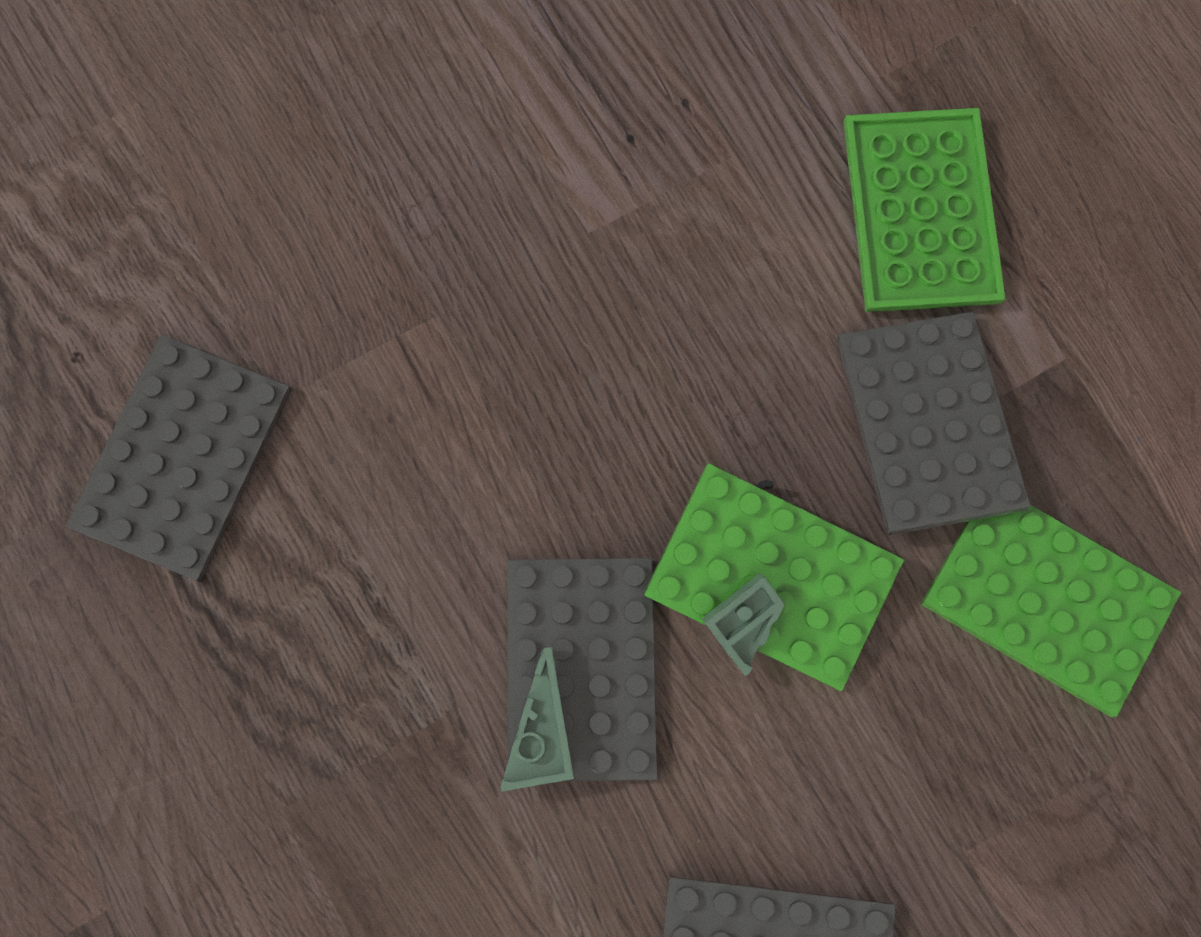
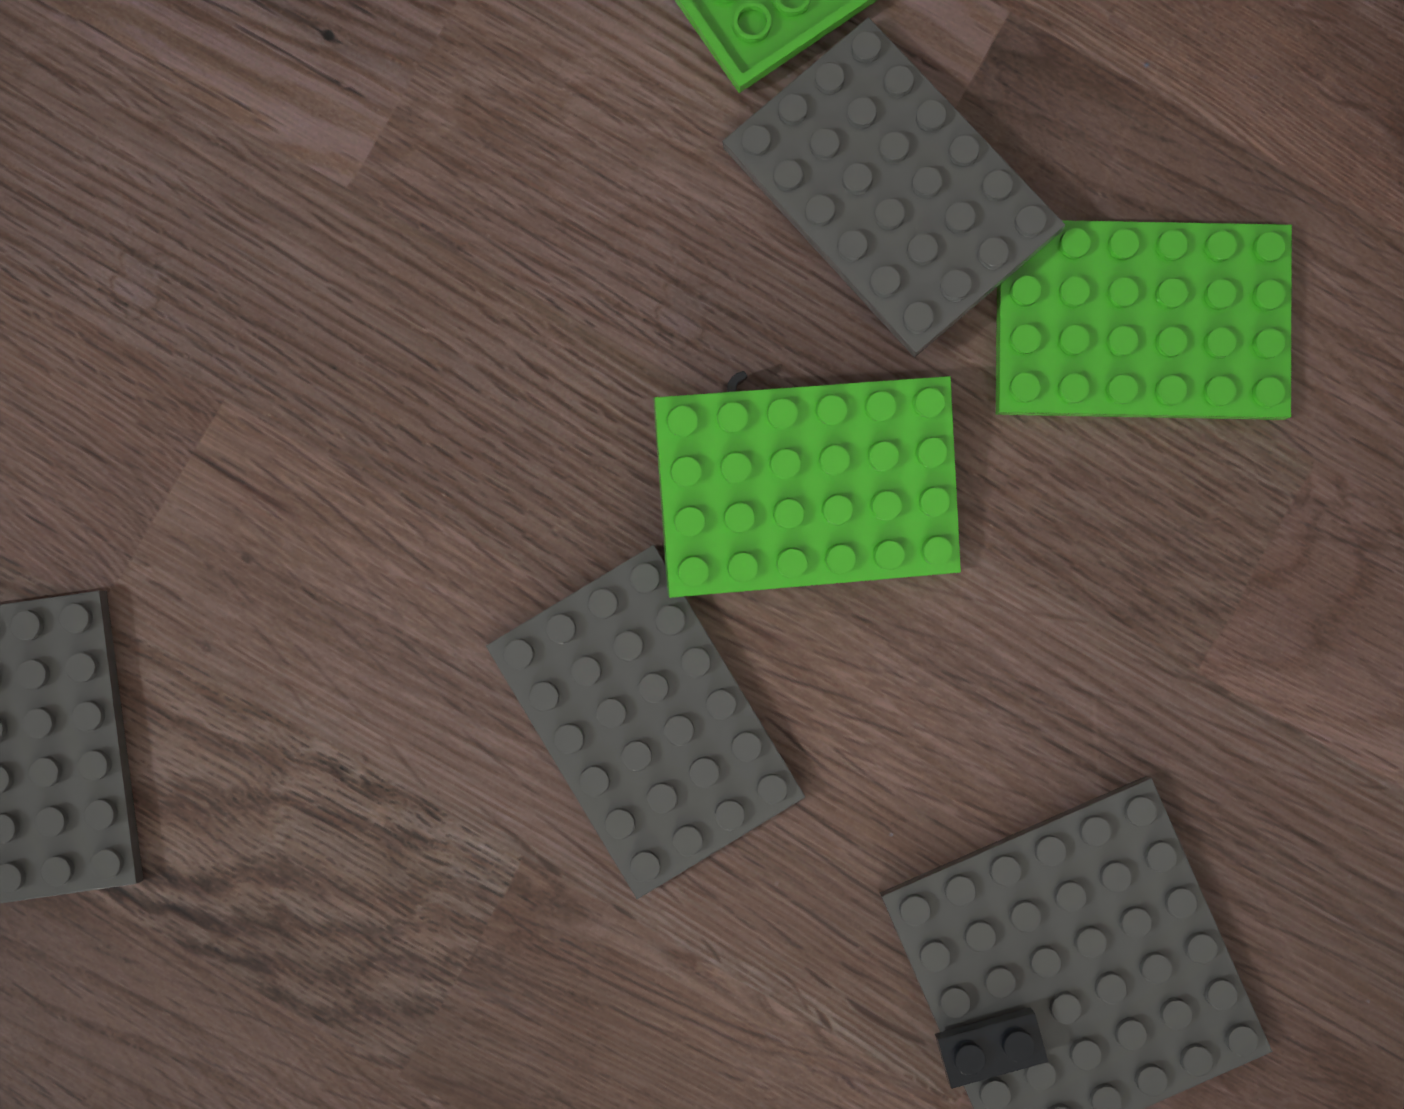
camera: 30 degrees left, 10 degrees up
(541, 743) = (649, 837): sand green wing -> none
(745, 620) = (804, 560): sand green wing -> none

